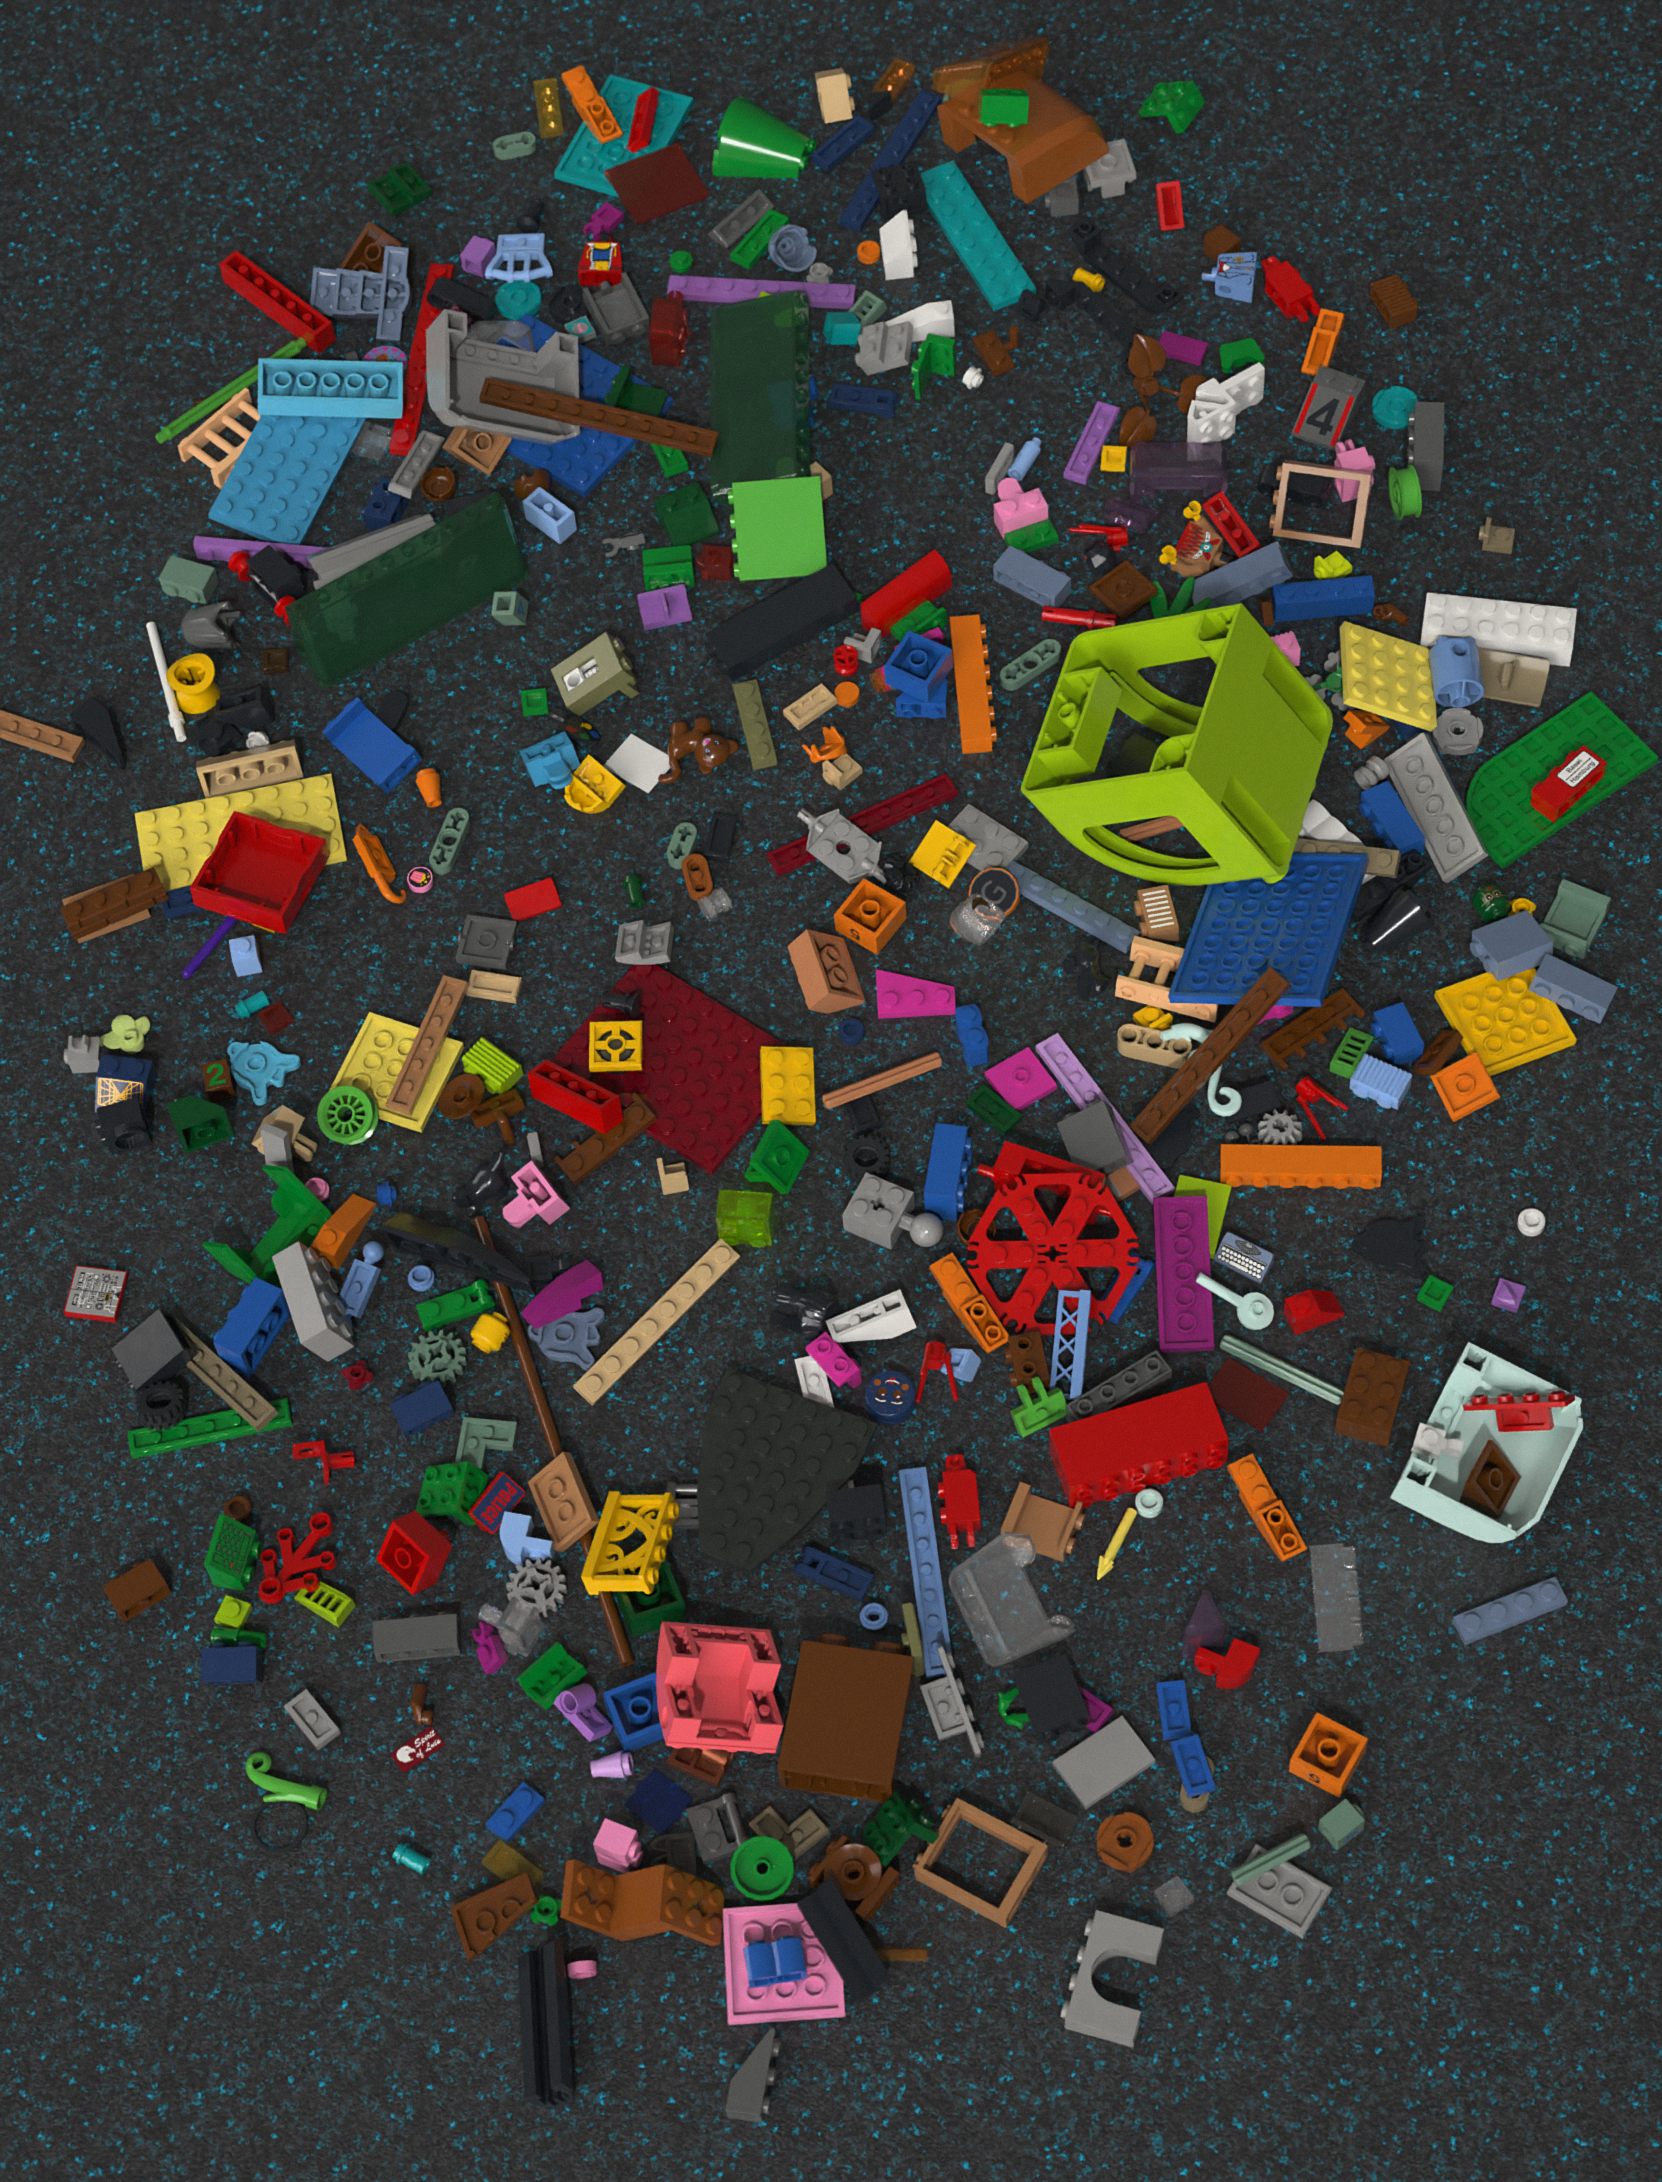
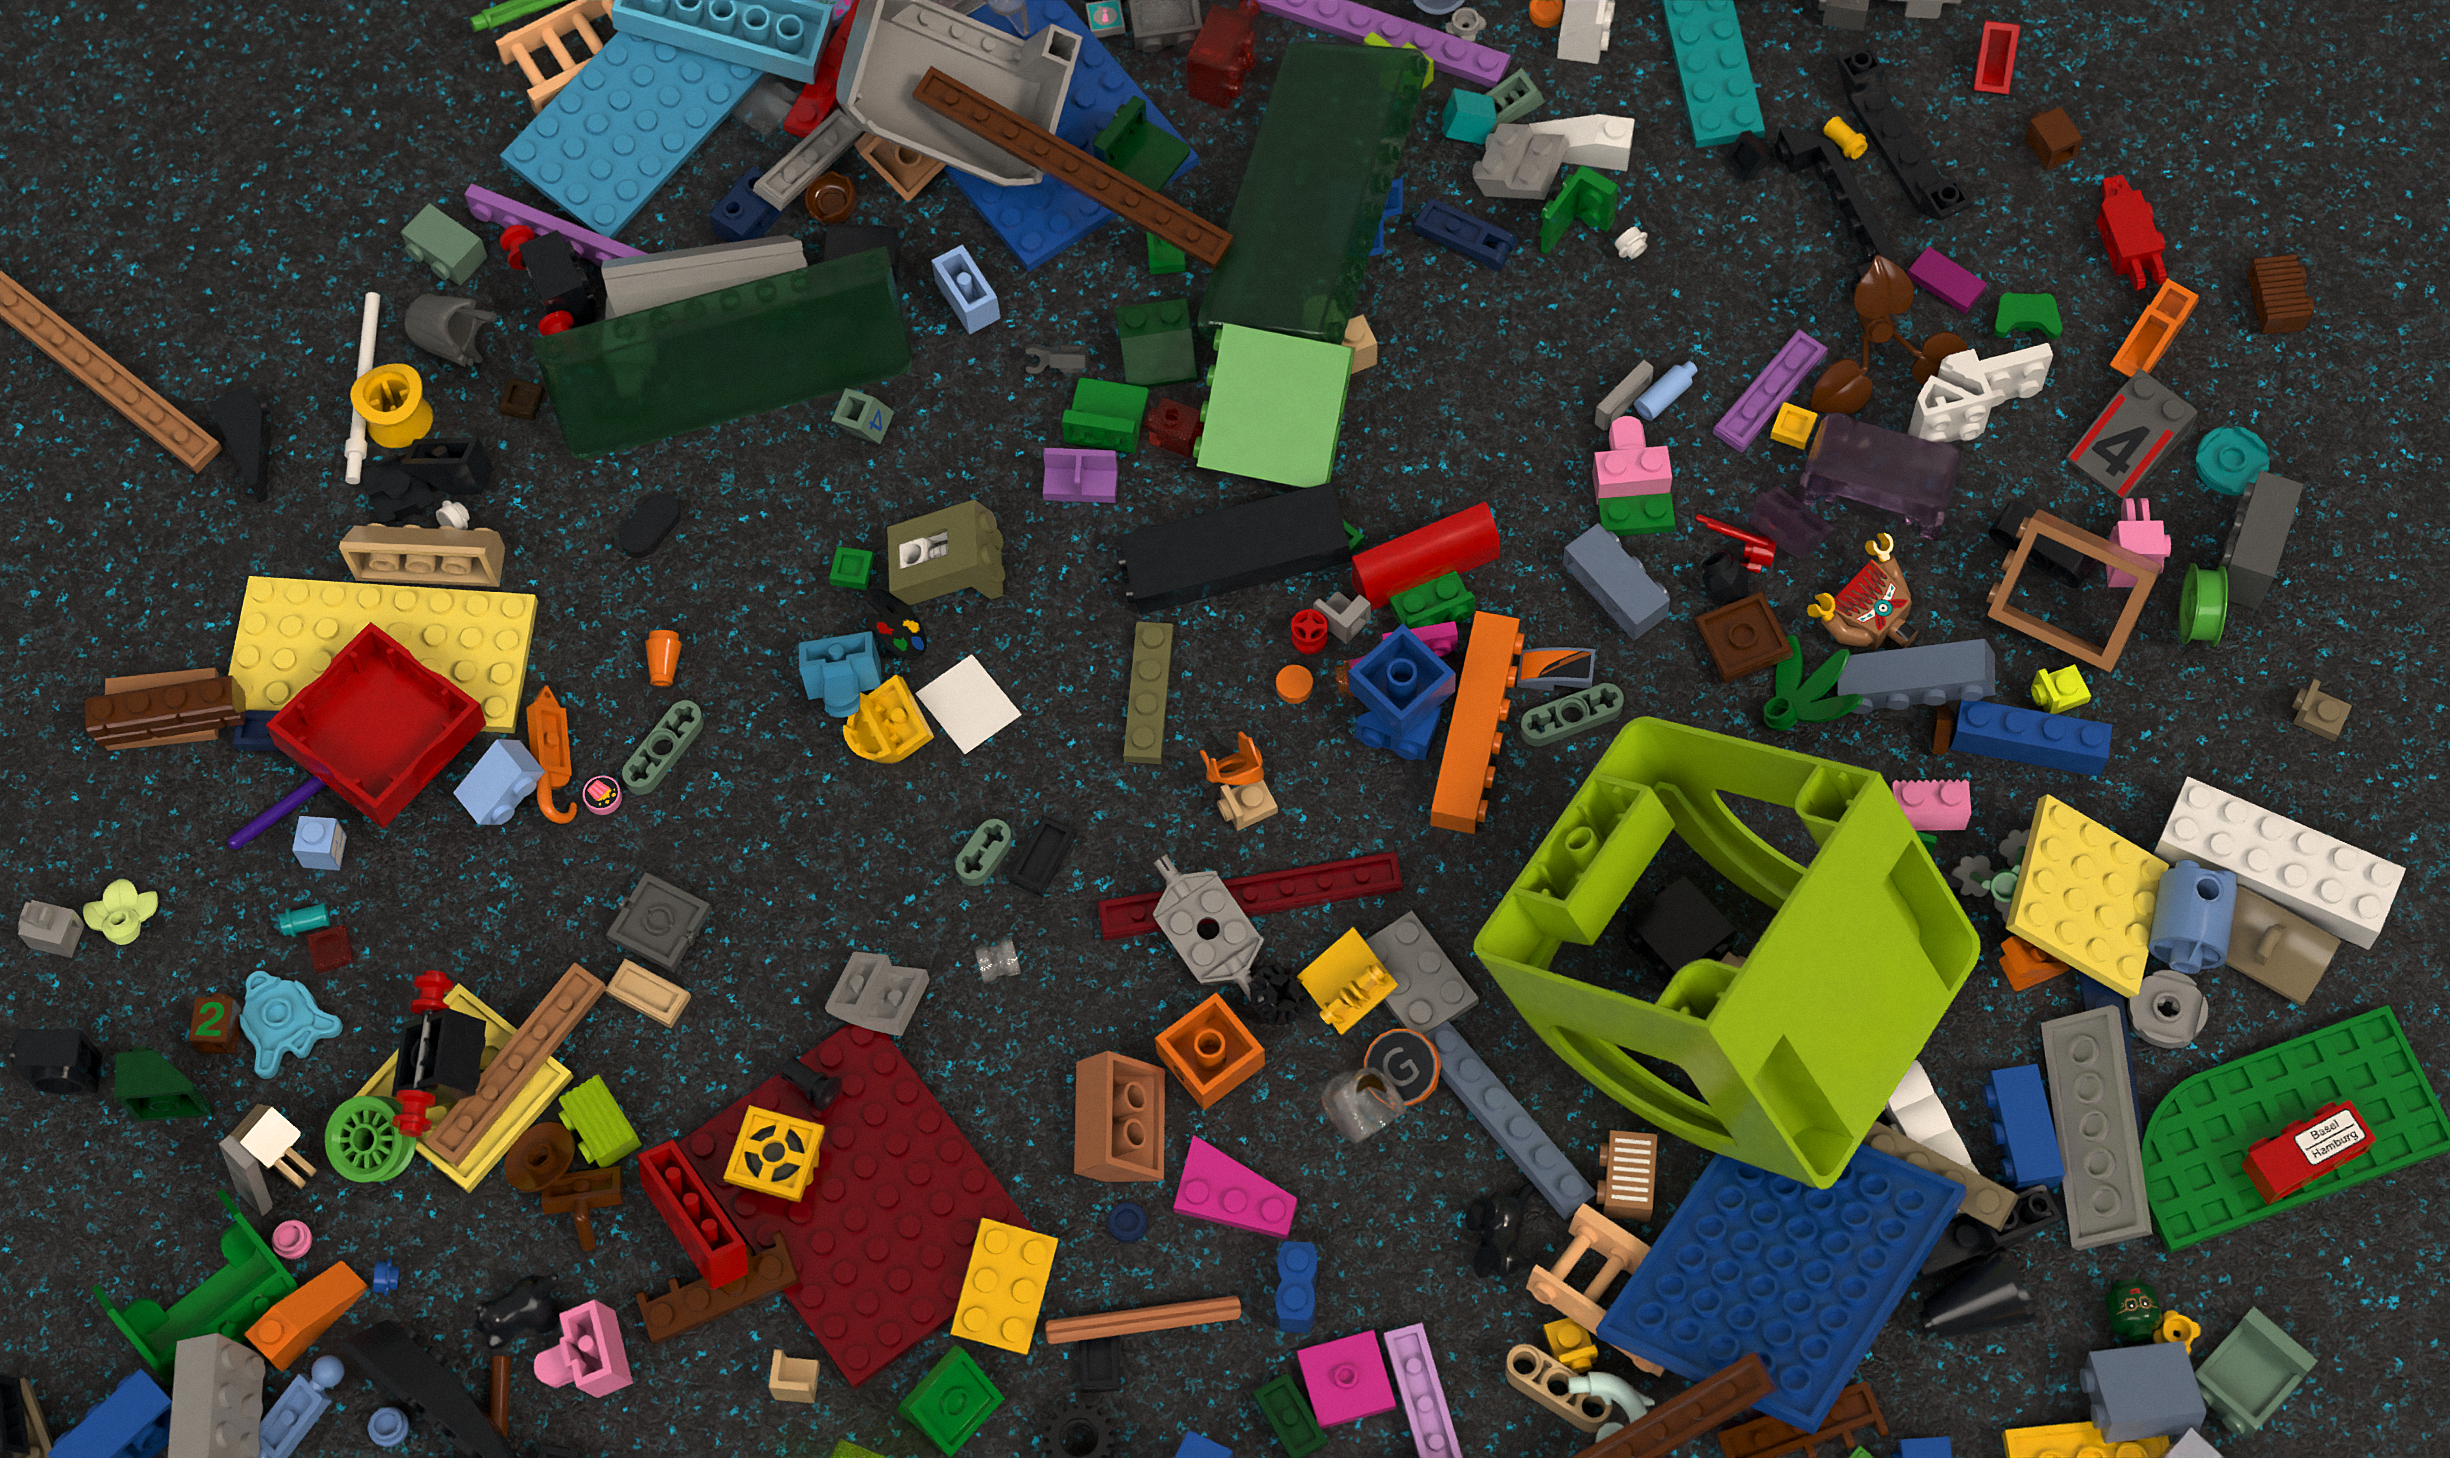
camera: 15 degrees right, 5 degrees up
(125, 1079) = (86, 994): dark blue slope -> none
(352, 886) = (499, 782): none -> light blue brick
(371, 746) = (604, 570): blue panel -> none
(376, 1048) = (435, 1055): none -> black brick
(527, 485) = (968, 232): reddish brown hair -> none
(532, 900) = (745, 875): red slope -> none
(535, 1149) = (614, 1274): light grey tile -> none
(632, 884) = (892, 904): dark green pin -> none
(697, 879) = (987, 912): dark orange plate -> none
(709, 748) = (1069, 716): reddish brown animal -> none
(810, 706) = (1235, 689): tan plate -> none
(995, 353) = (1676, 213): reddish brown plate -> none
(1005, 640) = (1556, 666): none -> slope
(1079, 617) = (1678, 667): red pin -> none
(1231, 525) = (1932, 588): red brick -> none
(1233, 275) = (2056, 189): medium blue torso -> none
(1373, 772) = (2018, 1040): light grey wheel -> none
(1390, 612) = (2126, 786): reddish brown arm -> none

